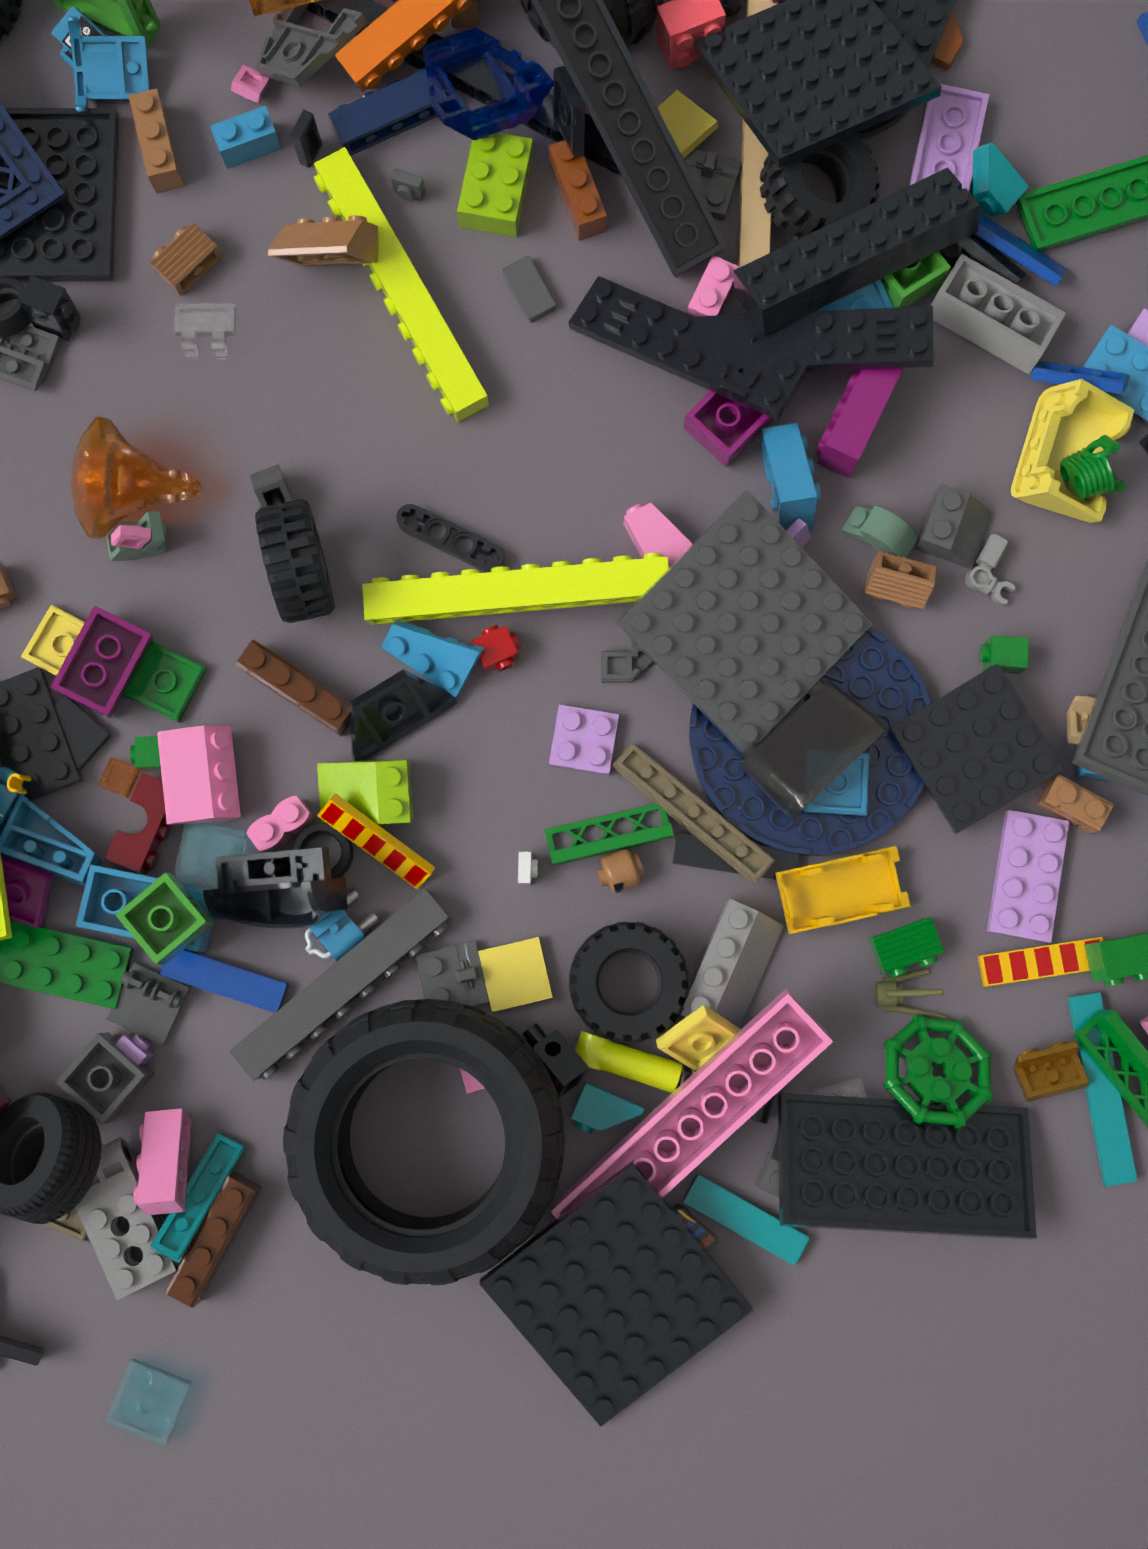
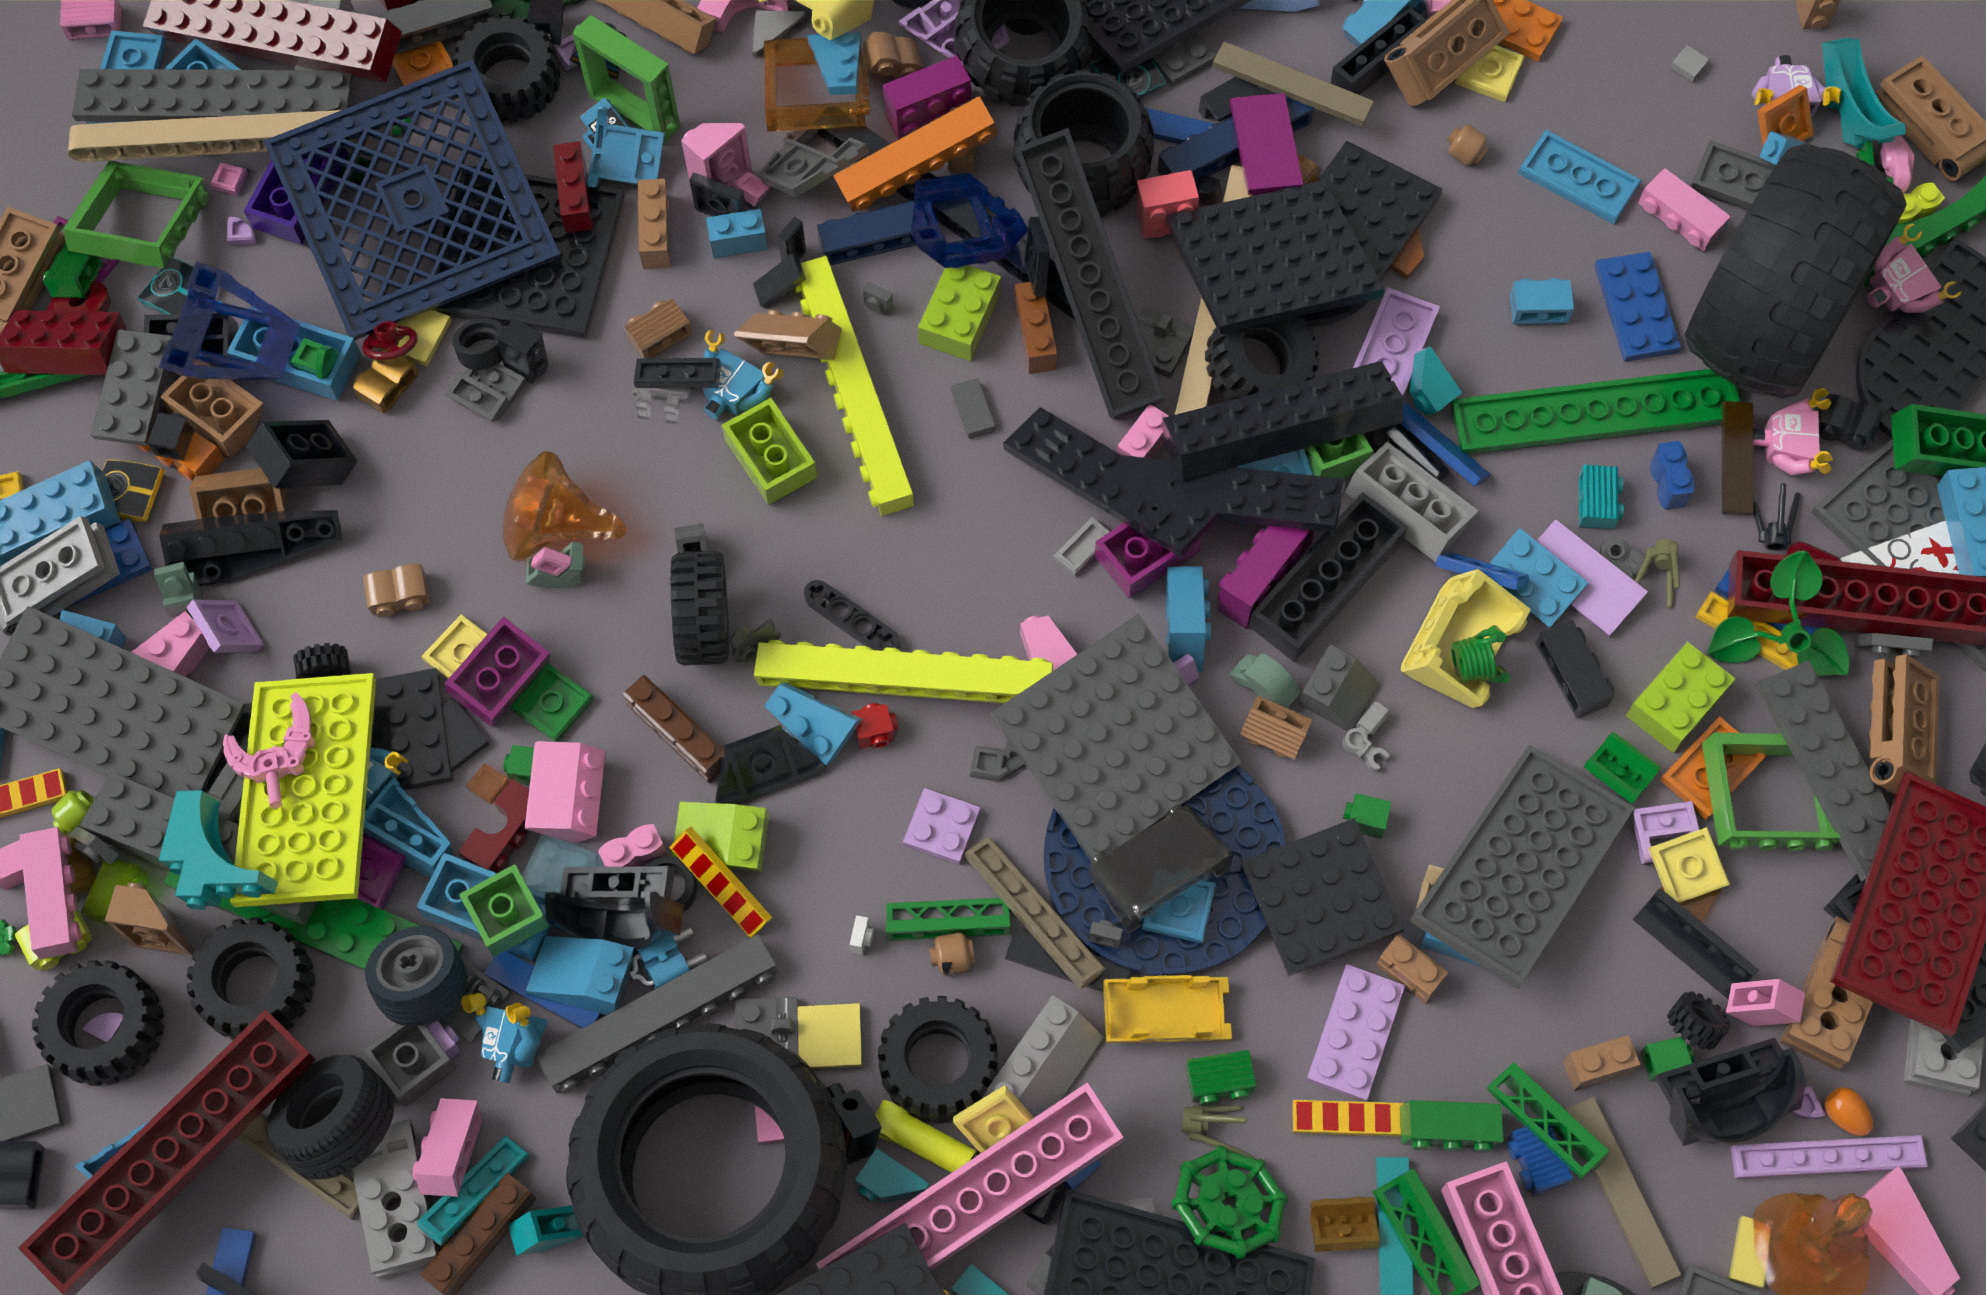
camera: 10 degrees right, 15 degrees down
(60, 114) = (573, 187): none -> dark red brick
(91, 999) = (416, 976): none -> black wheel
(198, 1036) = (508, 1034): none -> dark azure torso
(206, 55) = (717, 152): none -> bright pink slope
(215, 101) = (715, 197): none -> black tile
(216, 305) = (677, 373): none -> black tile
(256, 958) = (582, 973): none -> dark azure slope
(273, 1223) = (544, 1230): none -> teal slope
(275, 303) = (740, 383): none -> dark azure torso
(301, 183) = (779, 281): none -> black tile
(330, 373) = (769, 451): none -> lime brick
(349, 585) = (746, 641): none -> dark grey plate
(669, 420) = (1080, 547): none -> light grey tile
(686, 122) = (1147, 286): light yellow tile -> none
(770, 825) = (1105, 934): none -> dark grey plate
(925, 411) = (1327, 577): none -> black brick
(1092, 70) = (1541, 301): none -> dark azure brick

